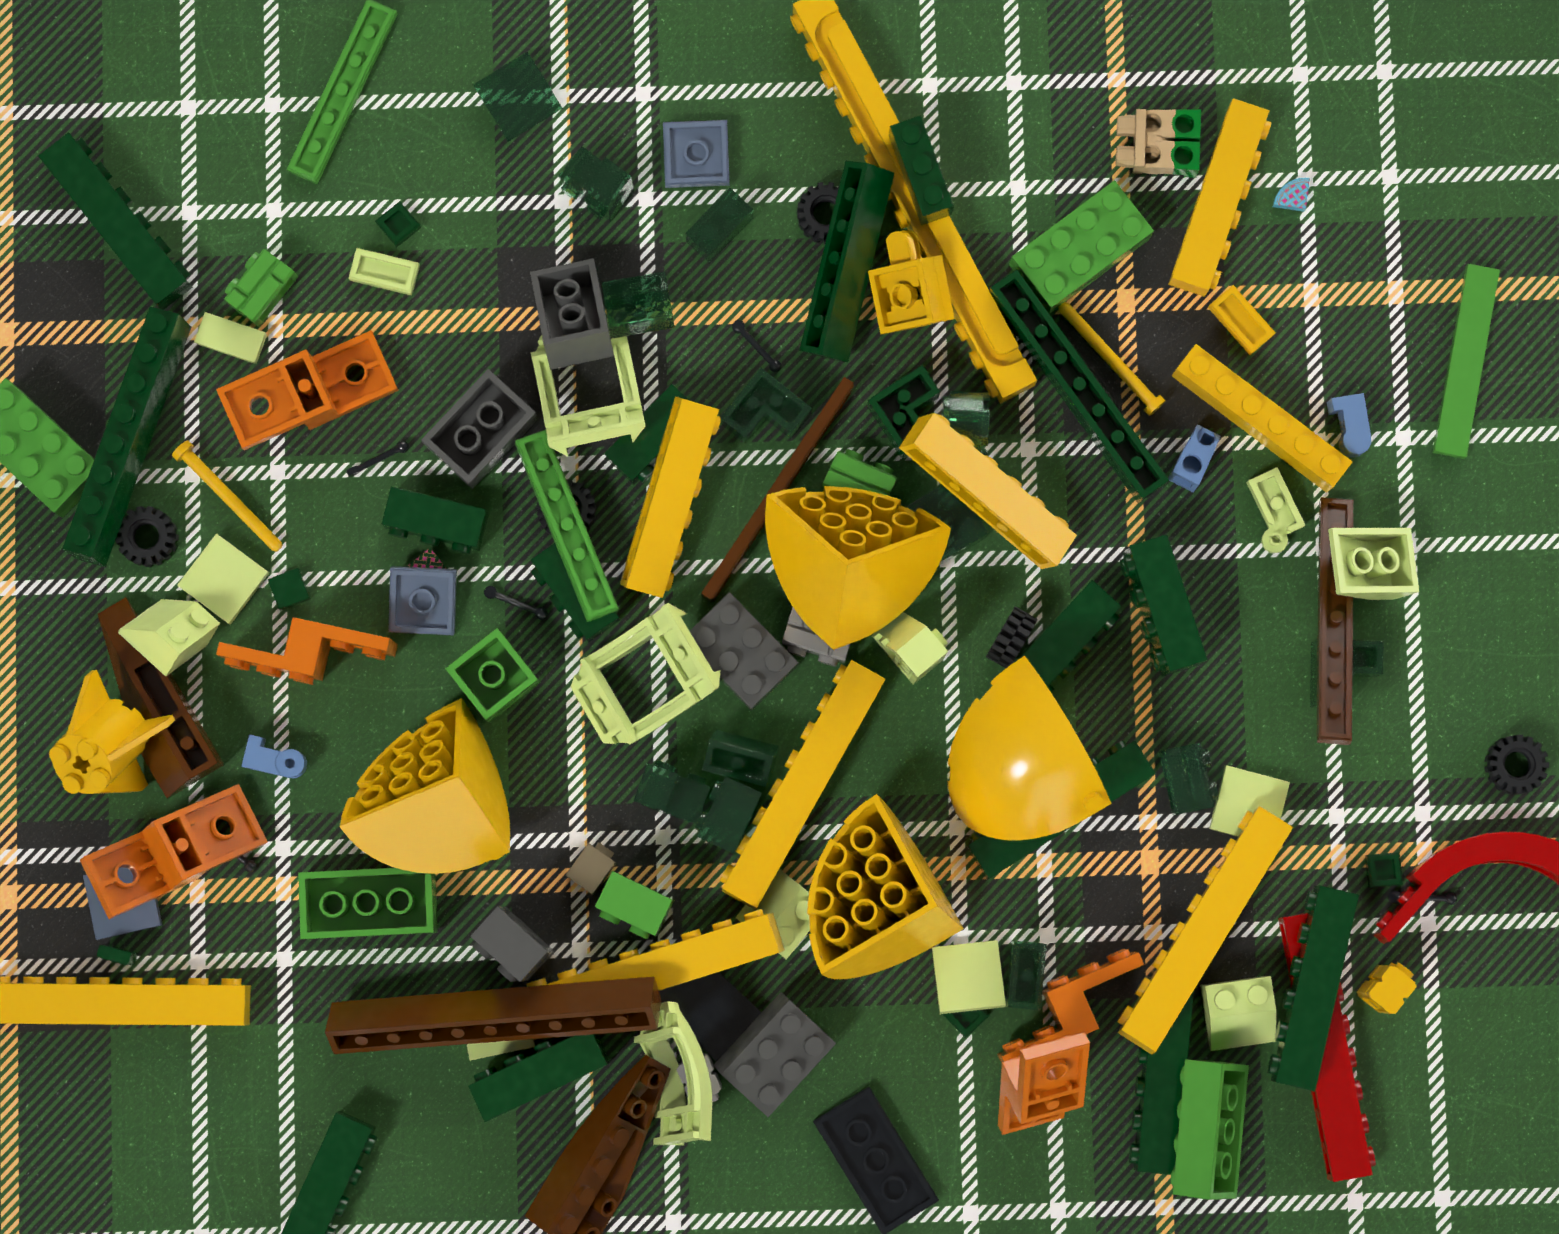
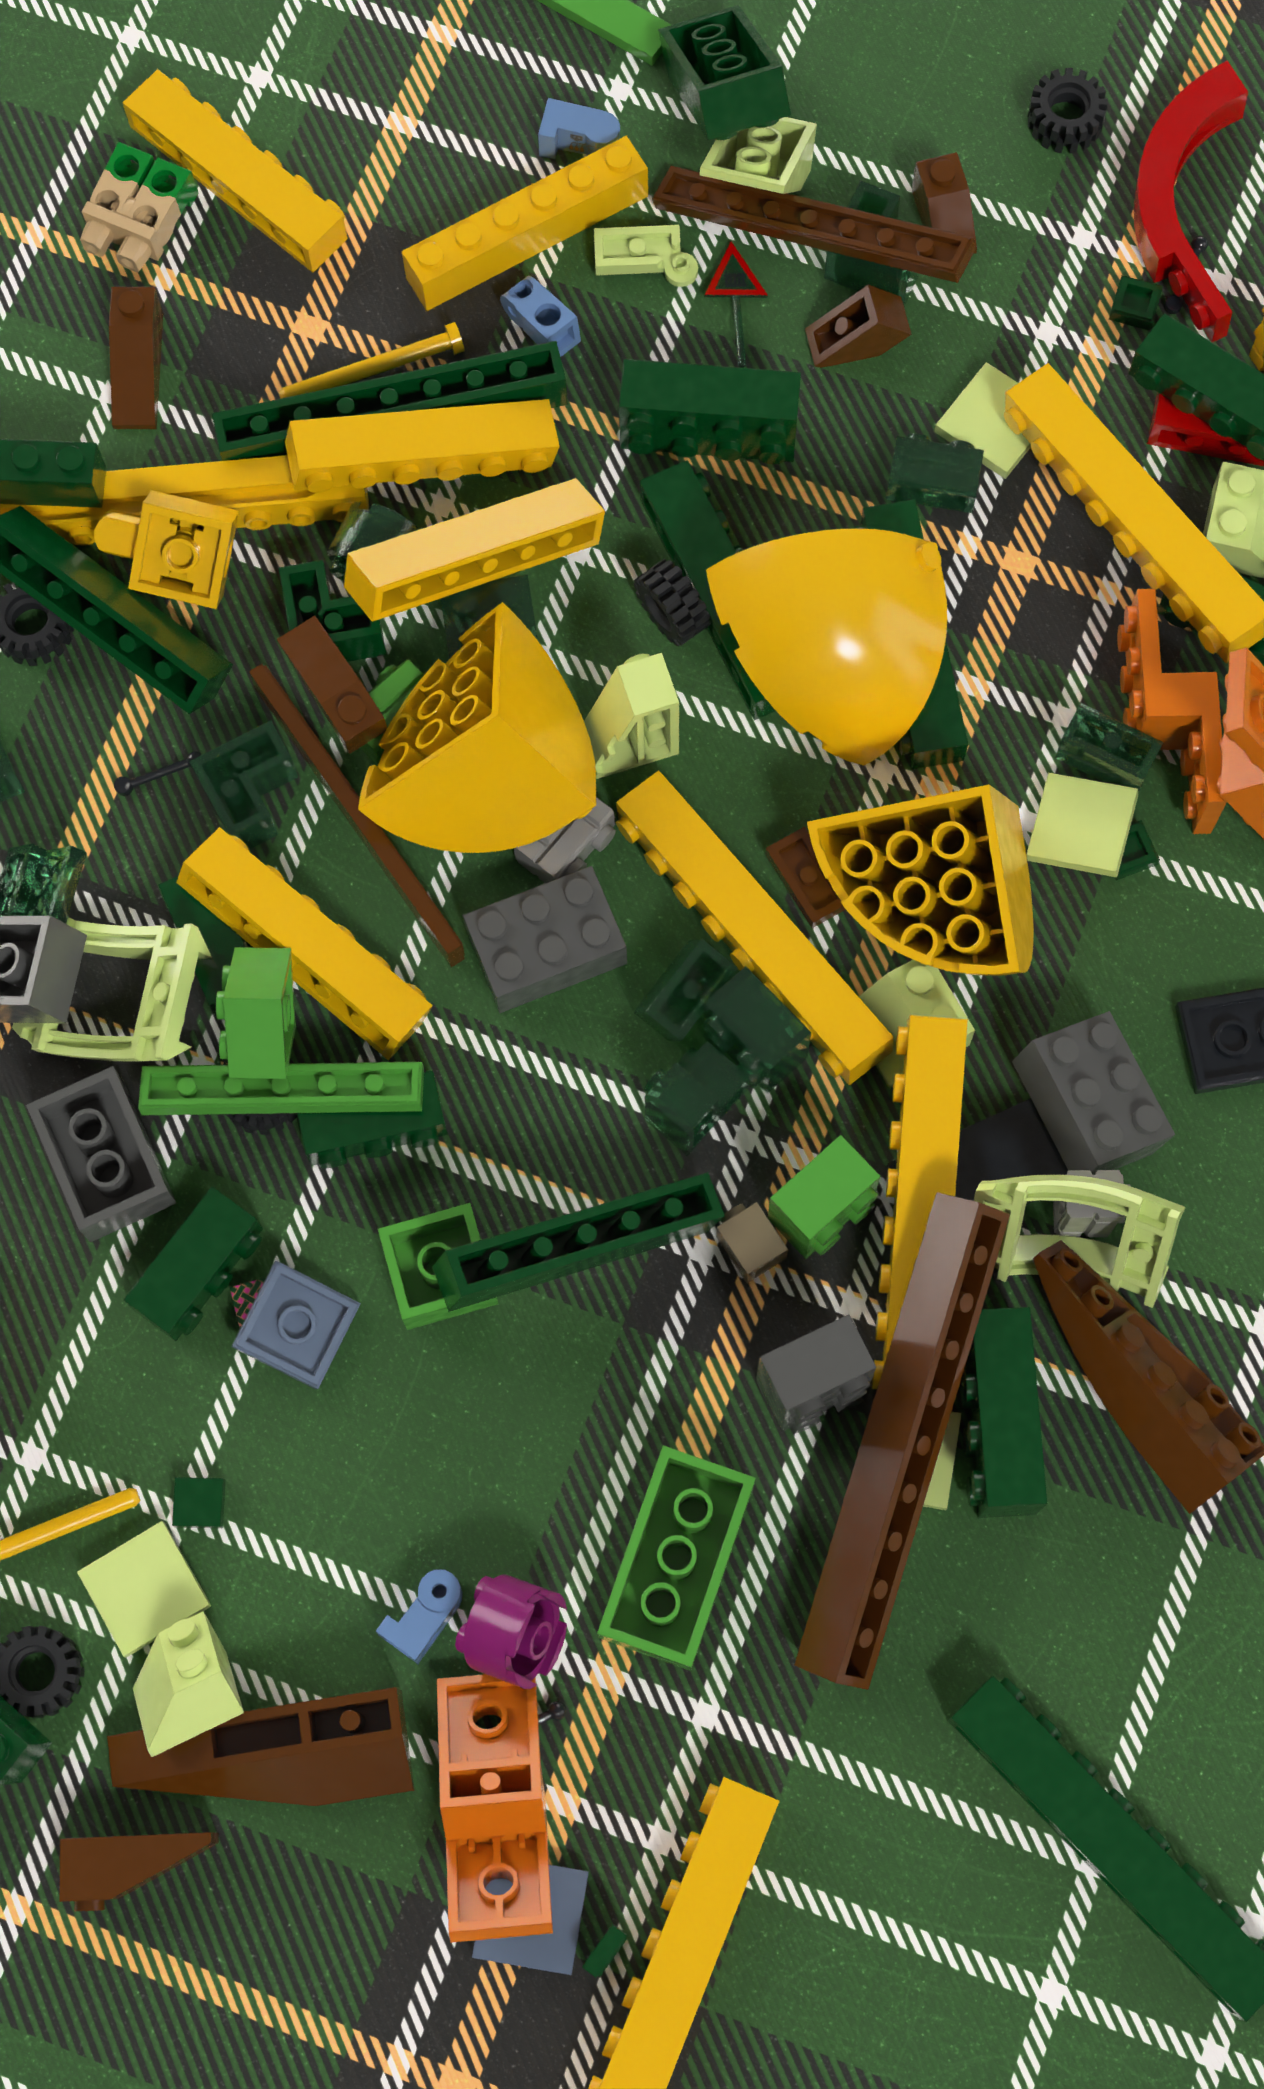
camera: 65 degrees left, 10 degrees down
(51, 635) = (117, 1865): none -> reddish brown slope
(103, 743) = (299, 1837): yellow brick -> none
(282, 819) = (513, 1630): none -> magenta brick
(307, 651) = (295, 1502): orange bracket -> none
(402, 447) = (77, 1274): black hinge -> none
(432, 799) = (572, 1410): yellow brick -> none
(491, 593) = (326, 1233): black hinge -> none
(538, 759) = (577, 1241): none -> dark green brick
(604, 489) = (257, 1013): none -> bright green brick
(683, 658) = (516, 1003): yellowish green wedge -> none
(851, 437) = (333, 684): none -> reddish brown slope
(861, 791) = (802, 876): none -> reddish brown plate
(1046, 194) = (135, 356): none -> reddish brown slope
(1054, 421) = (421, 445): none -> yellow brick
(1082, 246) = (217, 334): bright green brick -> none
(1241, 320) = (395, 206): yellow tile -> none
(1277, 683) = (858, 328): none -> reddish brown slope
(1283, 581) = (736, 281): none -> piece
(1293, 195) = (273, 94): medium azure tile -> none
(1398, 707) = (943, 195): none -> reddish brown slope
(1426, 511) = (725, 73): none -> dark green brick

